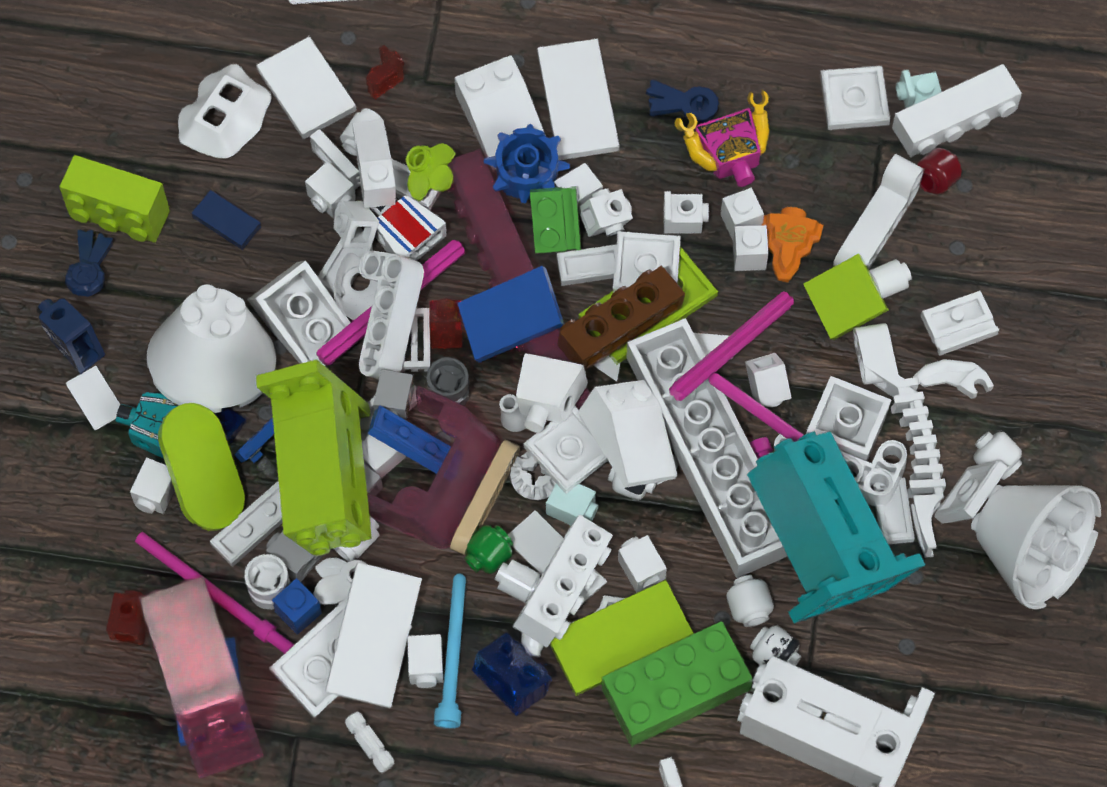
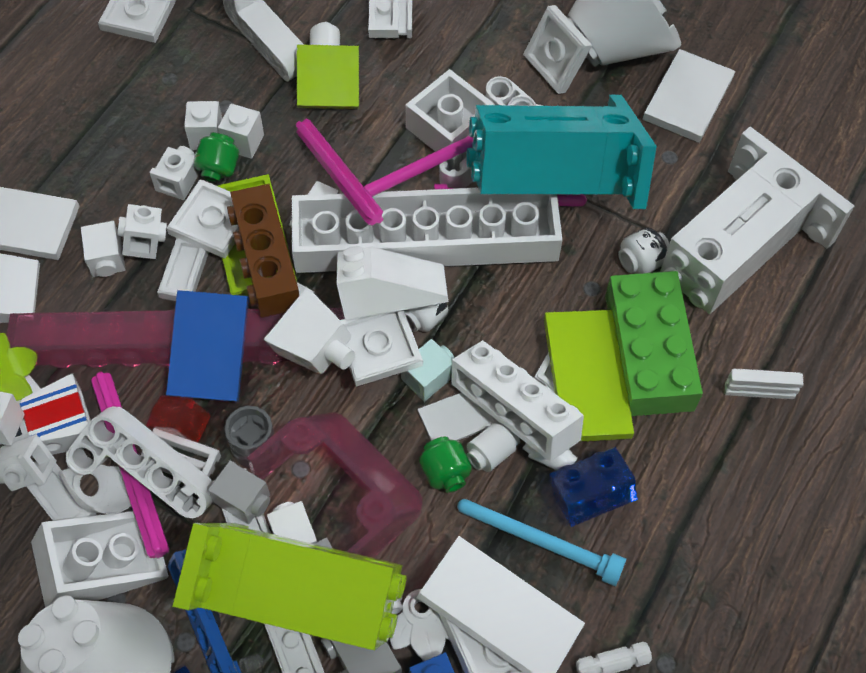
camera: 70 degrees left, 5 degrees down
(408, 439) = (301, 490): blue tile -> none
(425, 660) = (546, 568): white brick -> none
(485, 495) = (389, 446): tan beam -> none
(510, 414) = (312, 394): white cone -> none
(523, 147) = (52, 275): blue brick -> none
(523, 481) = (384, 407): white gear -> none
(555, 219) = (124, 274): bright green plate -> none
(641, 563) = (516, 330): white brick -> none
(697, 100) = (69, 125): dark blue piece -> none
(710, 239) = (216, 157): none -> green head
(730, 142) = (127, 107): torso -> none
(750, 601) = (589, 254): white head -> none
(768, 380) = (378, 157): white brick -> none
(790, 239) = (249, 93): orange rock -> none
(879, 368) = (404, 78): white piece -> none
(956, 373) = (434, 31): white piece -> none
(989, 642) = (689, 95): none -> white tile
(997, 448) = (522, 23): white head -> none

